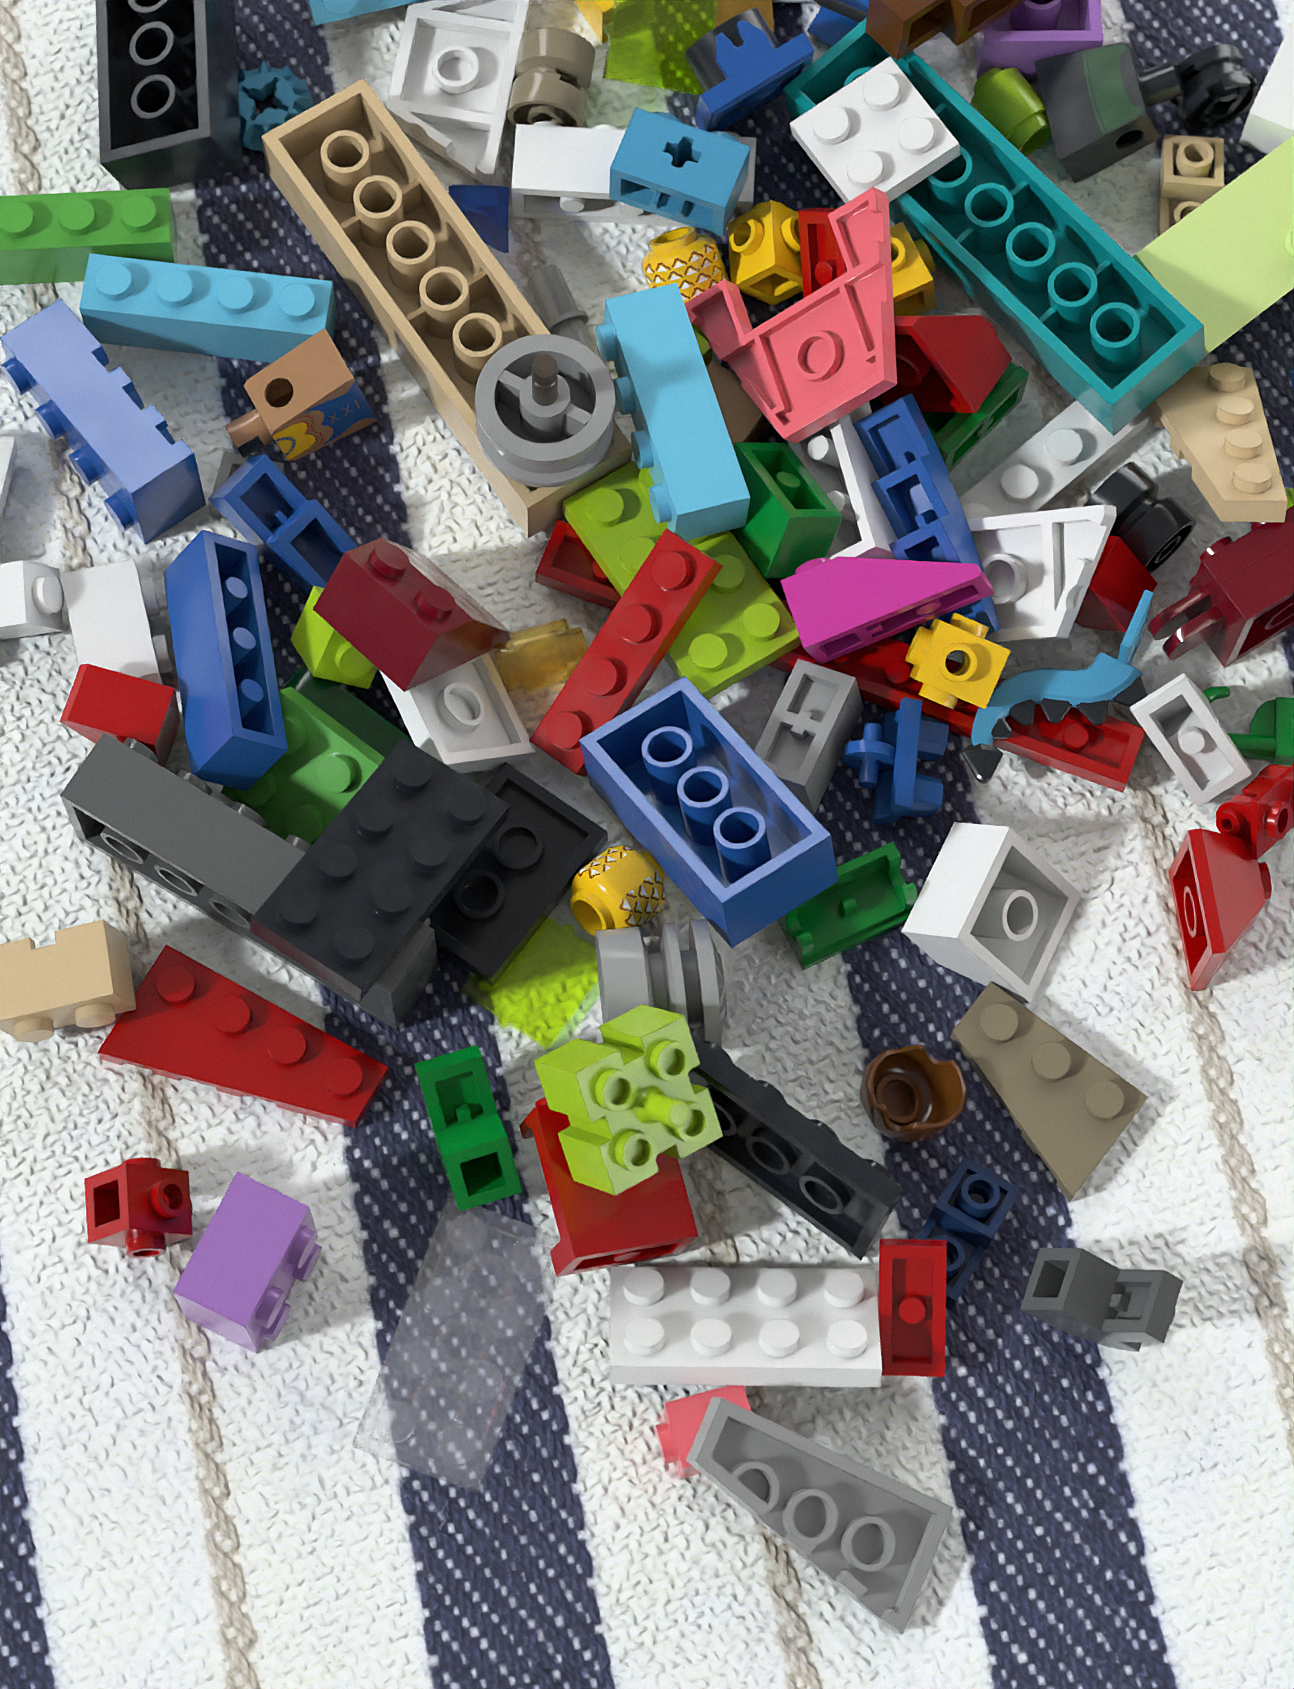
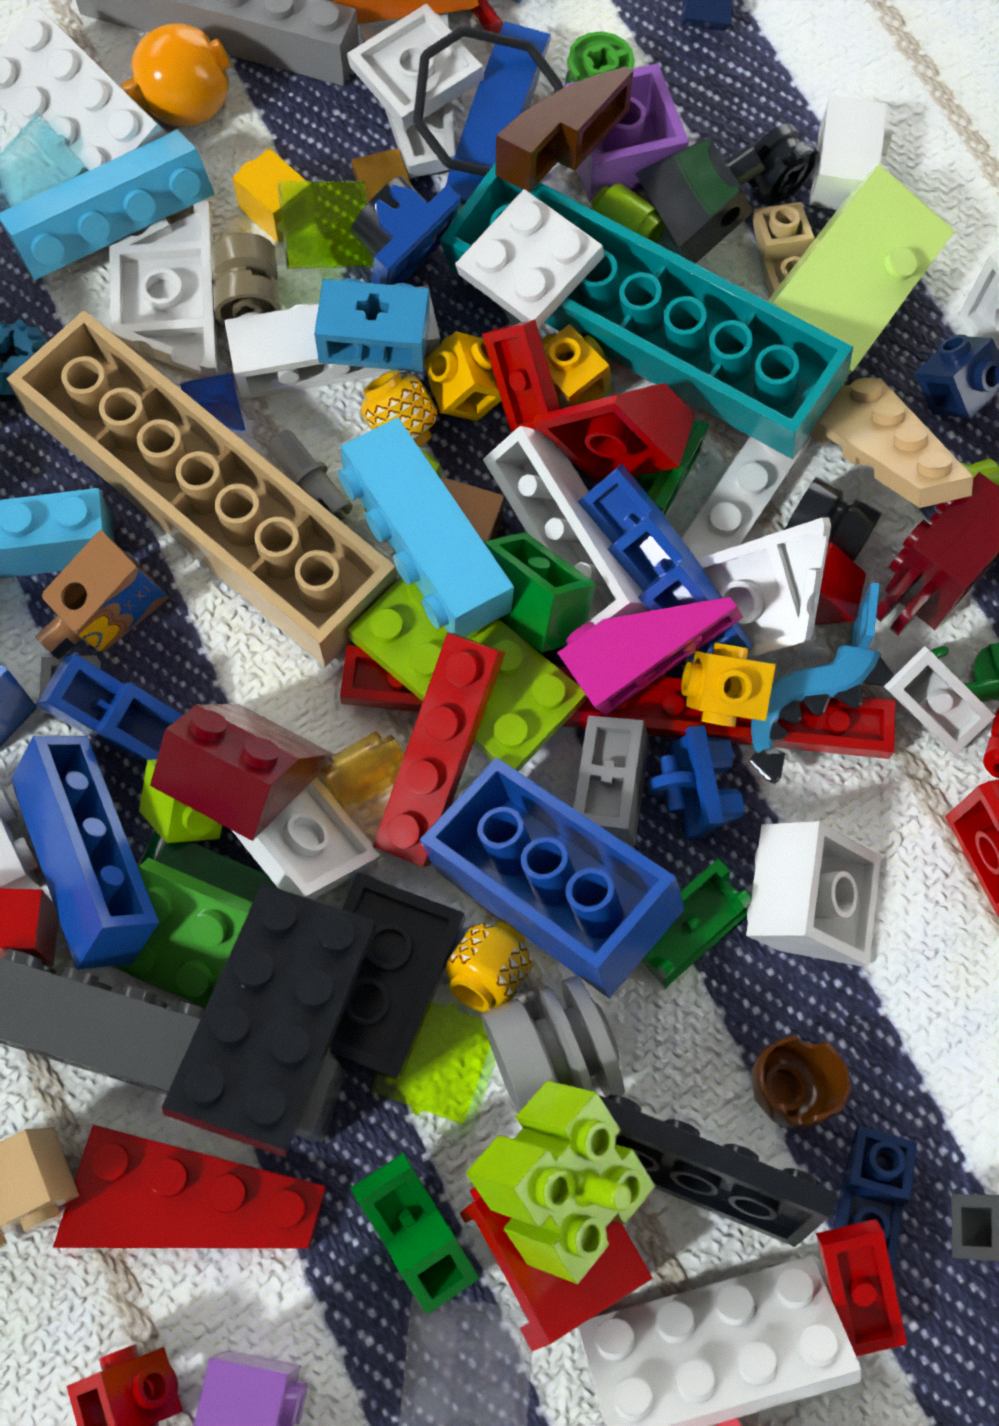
camera: 15 degrees left, 0 degrees up
(545, 410) = (313, 554): light grey wheel -> none
(825, 349) = (542, 442): coral wing -> none
(1049, 1085) = (912, 1039): dark tan wing -> none

